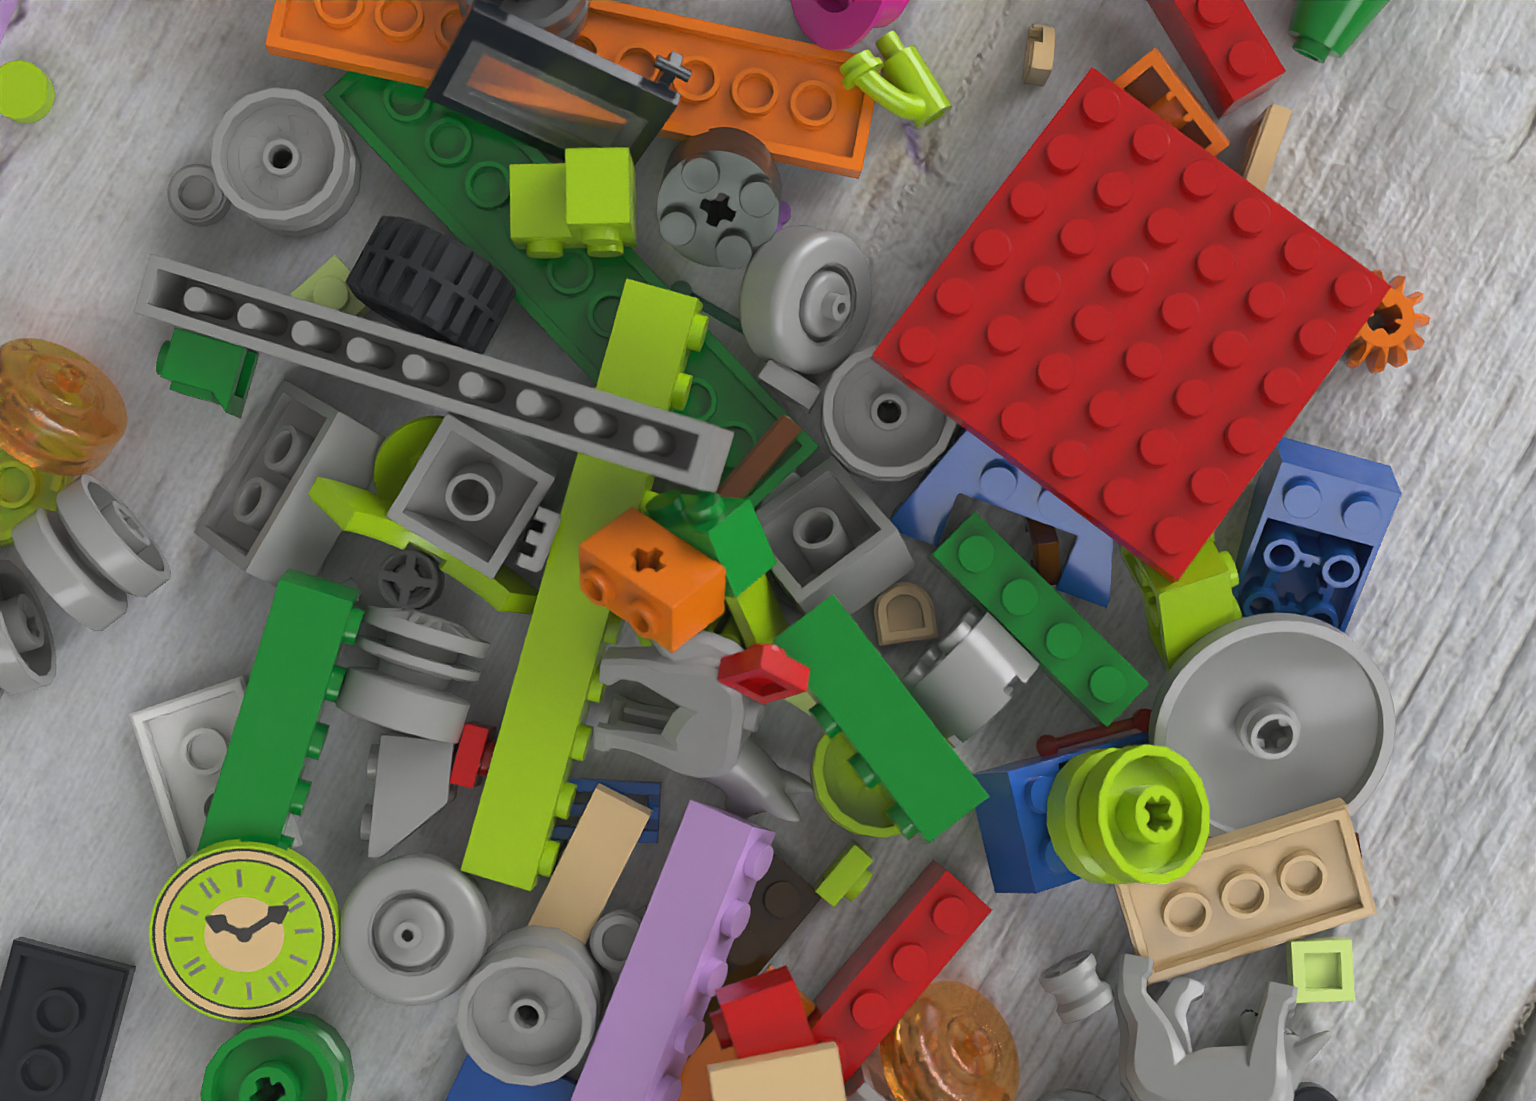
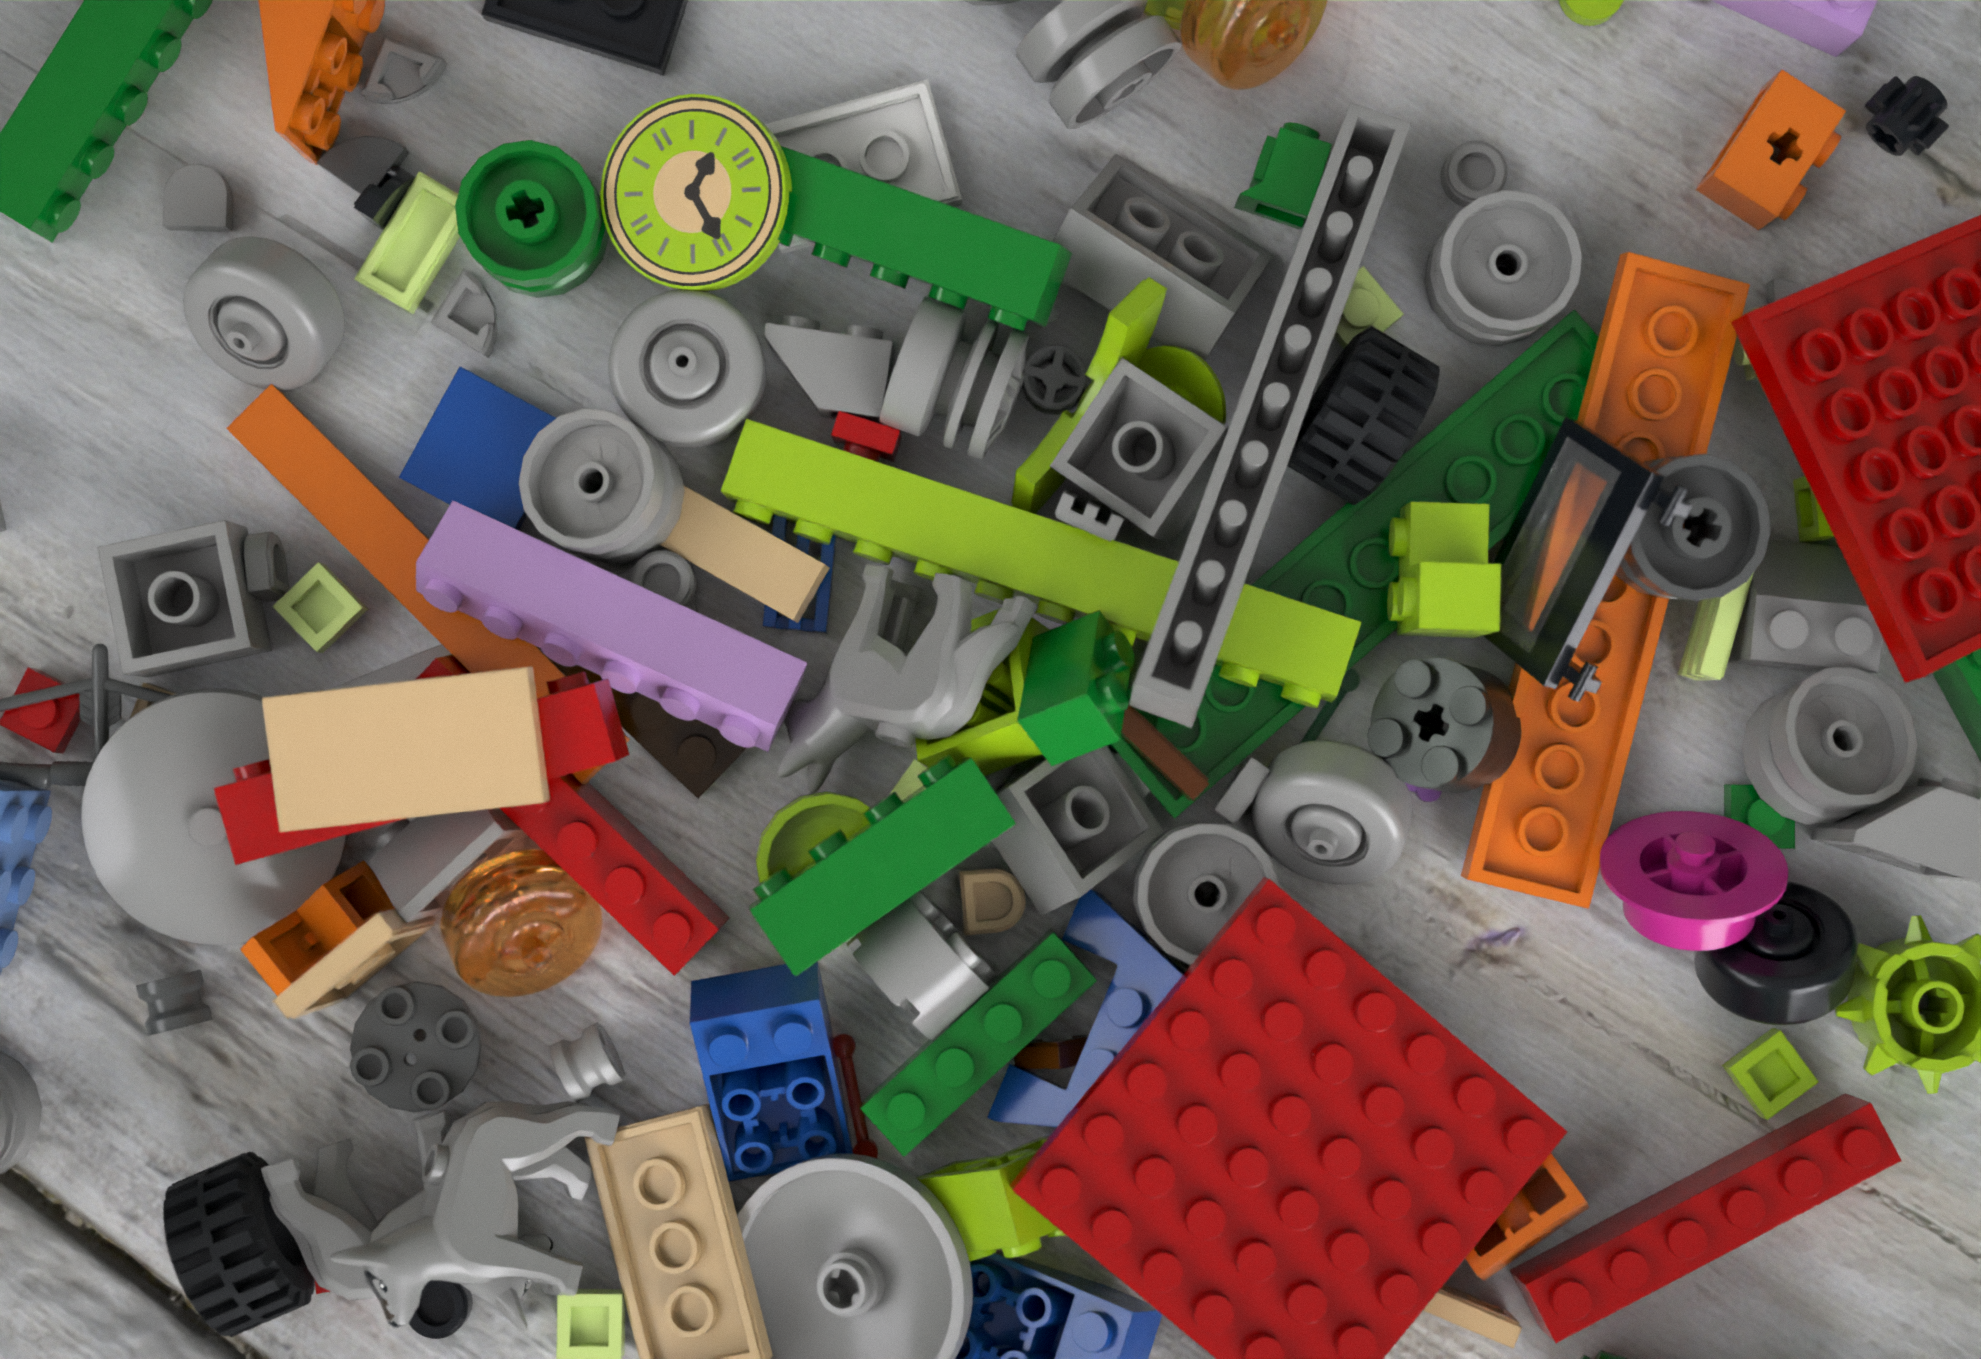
camera: 90 degrees right, 0 degrees up
(651, 579) = (1040, 633): orange brick -> none
(763, 673) = (936, 745): red plate -> none
(845, 875) = (718, 823): lime plate -> none
(909, 84) = (1557, 939): lime plant -> none
(1039, 54) = (1587, 1078): tan tile -> none
(1128, 815) = (766, 1125): lime wheel -> none

